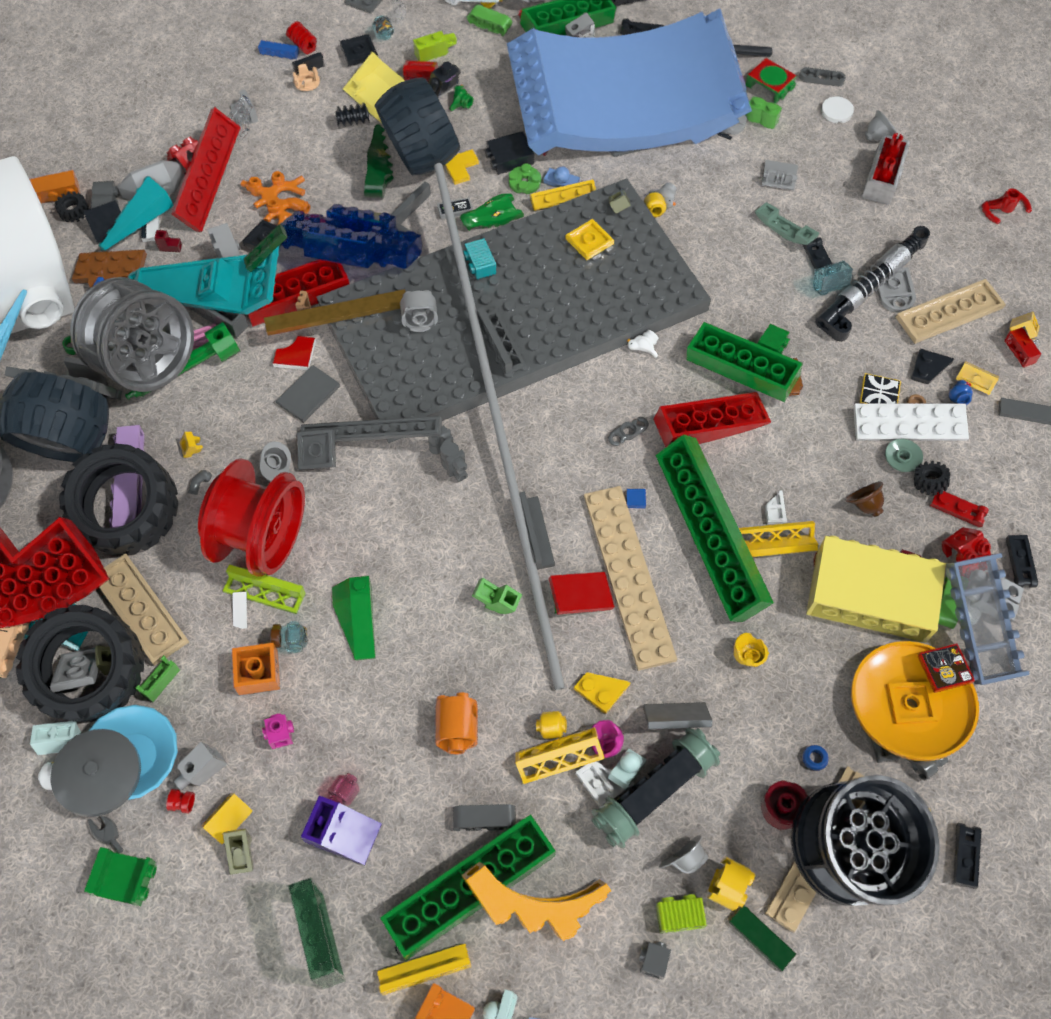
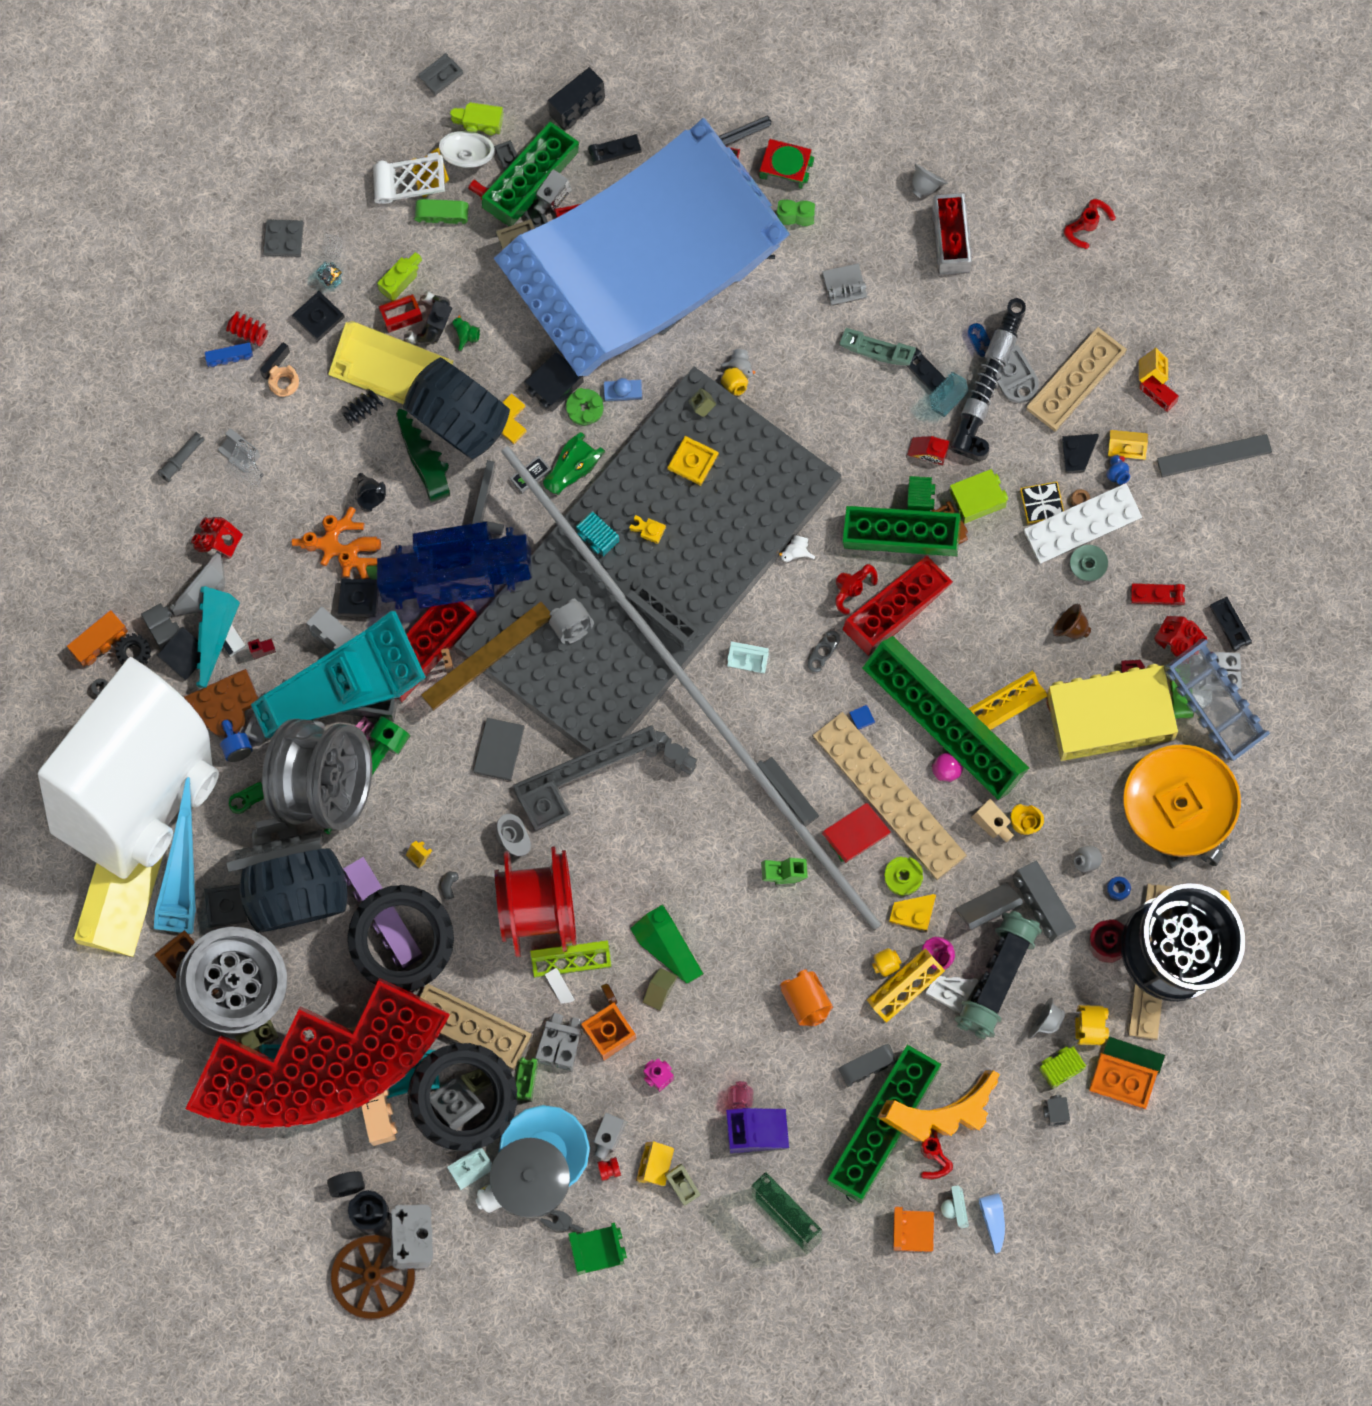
camera: 20 degrees left, 10 degrees up
(191, 100) = (175, 463): none -> dark grey pin
(206, 170) = (252, 547): red plate -> none
(206, 659) = (560, 1036): none -> light grey hips
(265, 247) = (385, 622): dark green tile -> none
(294, 637) = (624, 988): clear light blue head -> none
(296, 355) = (464, 713): red tile -> none
(320, 171) = (369, 492): none -> black hat
(326, 652) = (660, 989): none -> olive slope
(423, 969) = (879, 1202): yellow fence -> none
(514, 961) = (945, 1162): none -> red piece
(525, 274) = (649, 530): none -> yellow plate
(558, 195) = (634, 410): yellow tile -> none
(559, 408) = (748, 657): none -> light aqua hinge
(612, 642) = (903, 865): none -> lime plate
(627, 769) = (967, 970): light aqua tile -> none
(680, 387) = (852, 585): none -> red piece
(694, 573) = (946, 768): none -> dark pink hair
(713, 631) = (988, 815): none -> tan torso
(734, 736) = (1043, 901): none -> dark grey brick
(740, 961) = (1123, 1081): none -> orange tile
(775, 510) = (993, 671): white tile -> none
(795, 714) = (1087, 858): none -> light grey head
(798, 313) = (929, 449): none -> red slope
(821, 72) = (840, 125): dark grey beam -> none
(825, 364) = (978, 495): none -> lime brick
(837, 109) = (871, 170): white tile -> none
(872, 252) = (976, 341): none -> clear blue beam
(931, 485) = (1125, 585): black tyre -> none
(946, 668) = (1197, 760): tile -> none
(967, 856) = (1271, 914): black plate -> none

